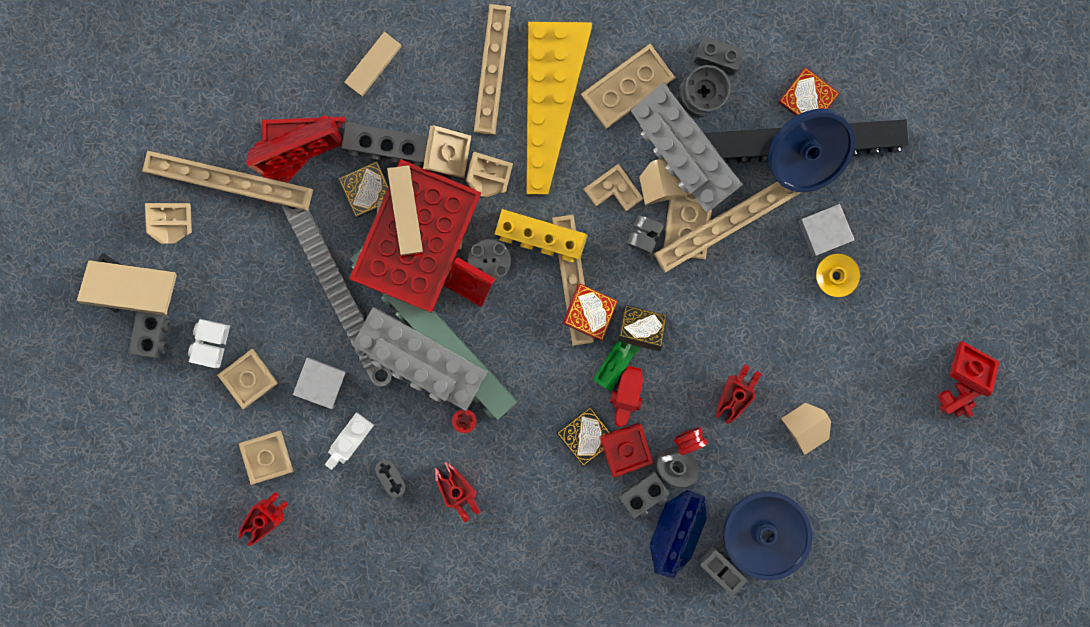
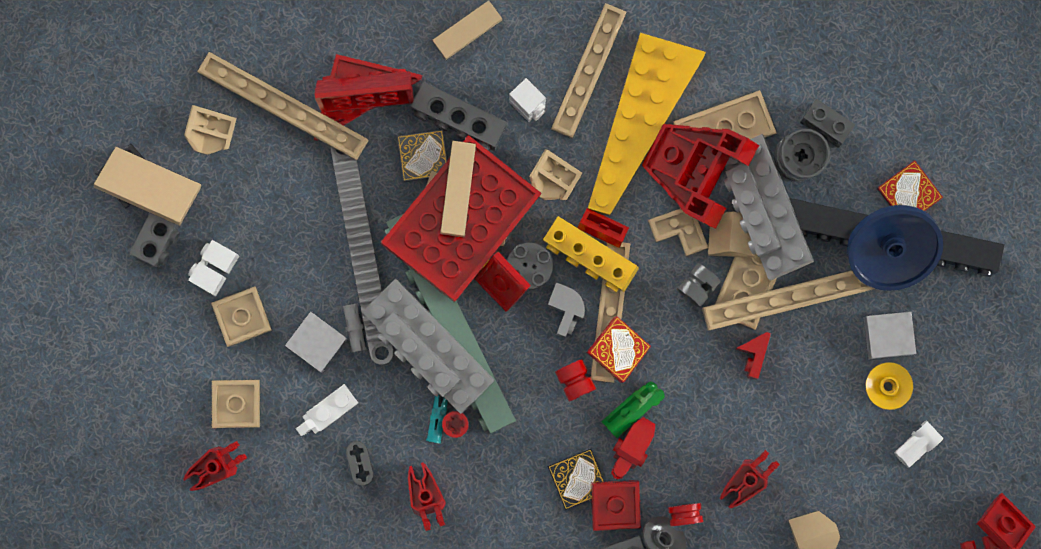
camera: 15 degrees right, 5 degrees down
(350, 360) = (354, 327): none -> light grey pin
(445, 112) = (528, 100): none -> white piece
(447, 152) = (518, 141): tan tile -> none
(447, 414) = (437, 413): none -> teal pin
(535, 283) = (568, 302): none -> light grey brick
(545, 207) = (603, 228): none -> red tile
(559, 350) = (575, 380): none -> red wheel
(607, 126) = (690, 163): none -> red wedge
(642, 328) = (668, 381): tile -> none
(713, 275) = (757, 348): none -> red slope
(878, 317) = (919, 443): none -> white piece

